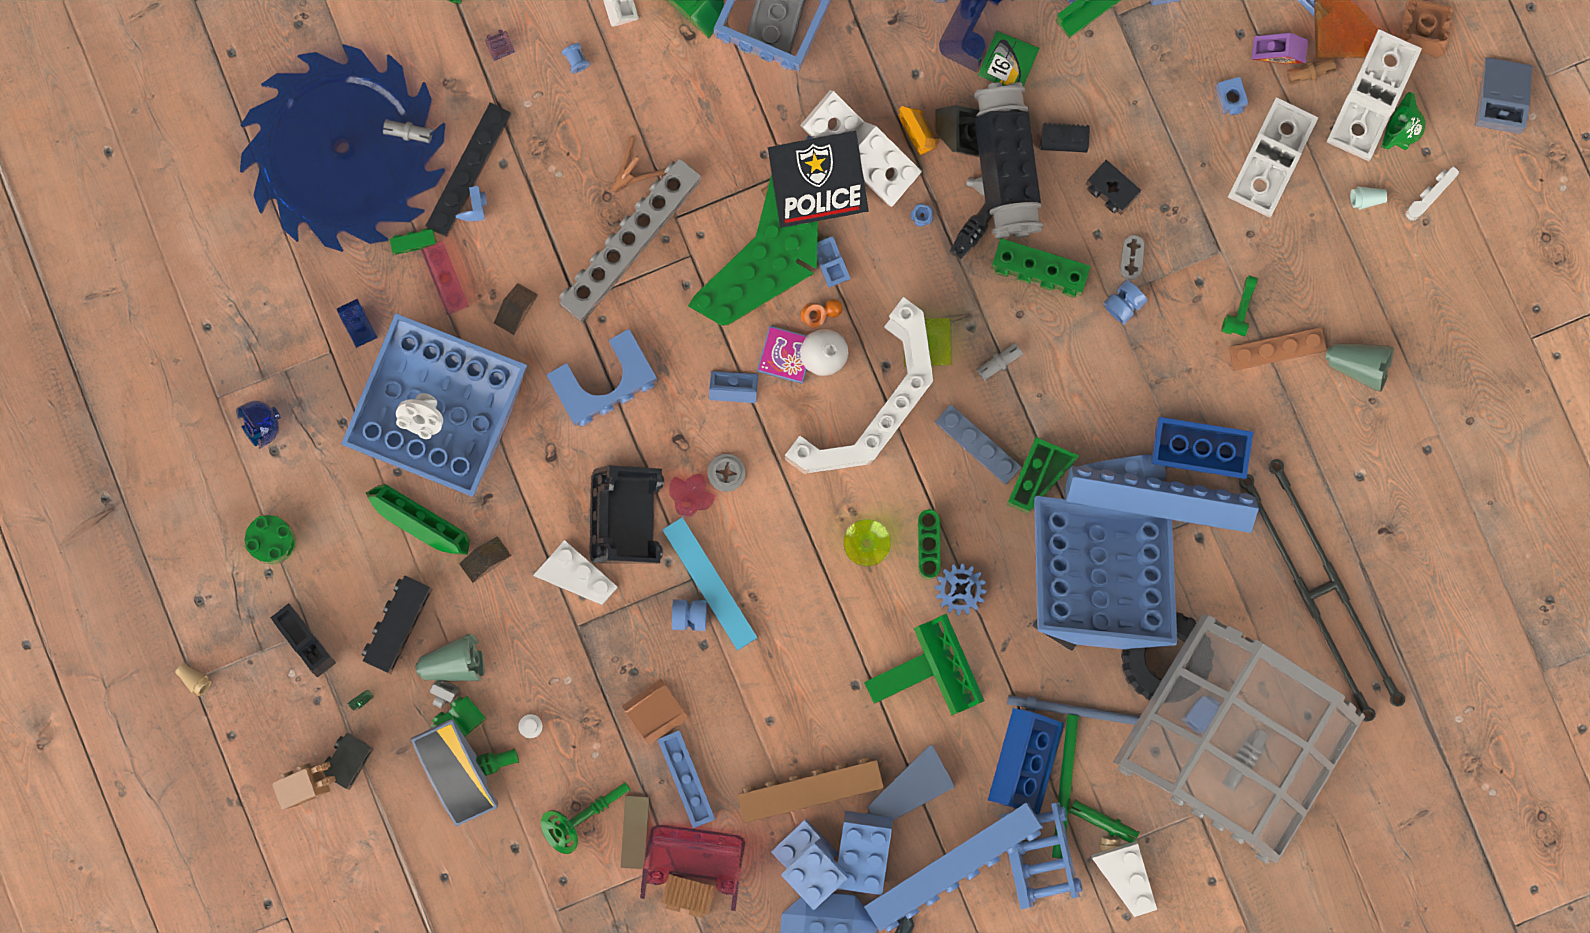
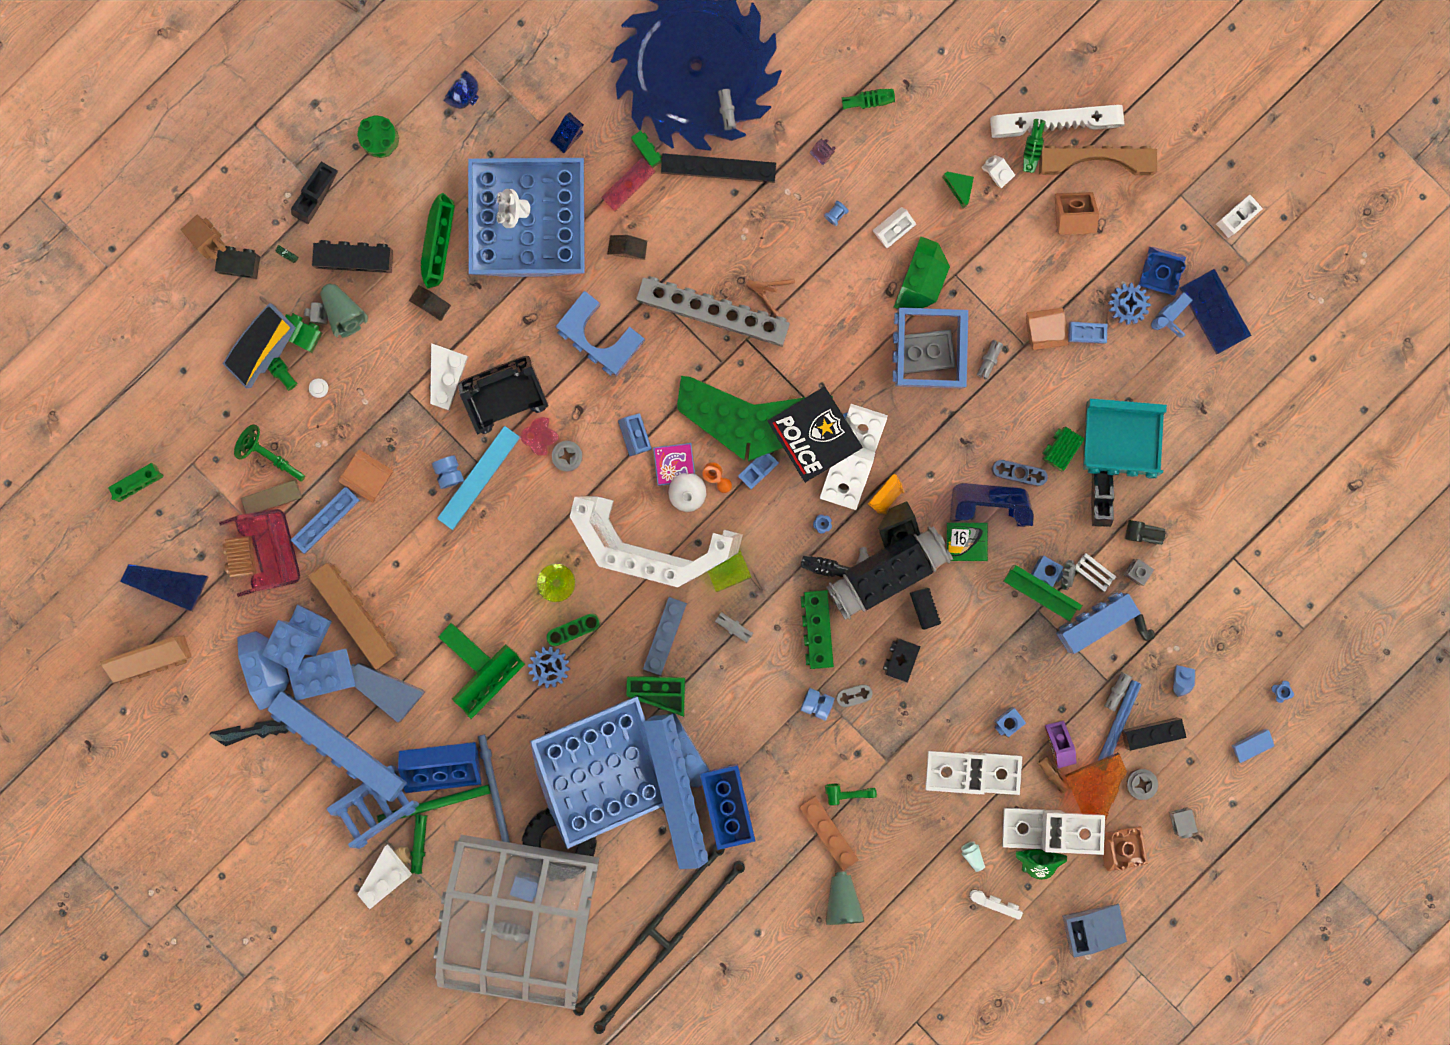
camera: 60 degrees right, 5 degrees up
(194, 680) = (252, 124): tan cone -> none
(478, 201) = (697, 184): medium blue plate -> none

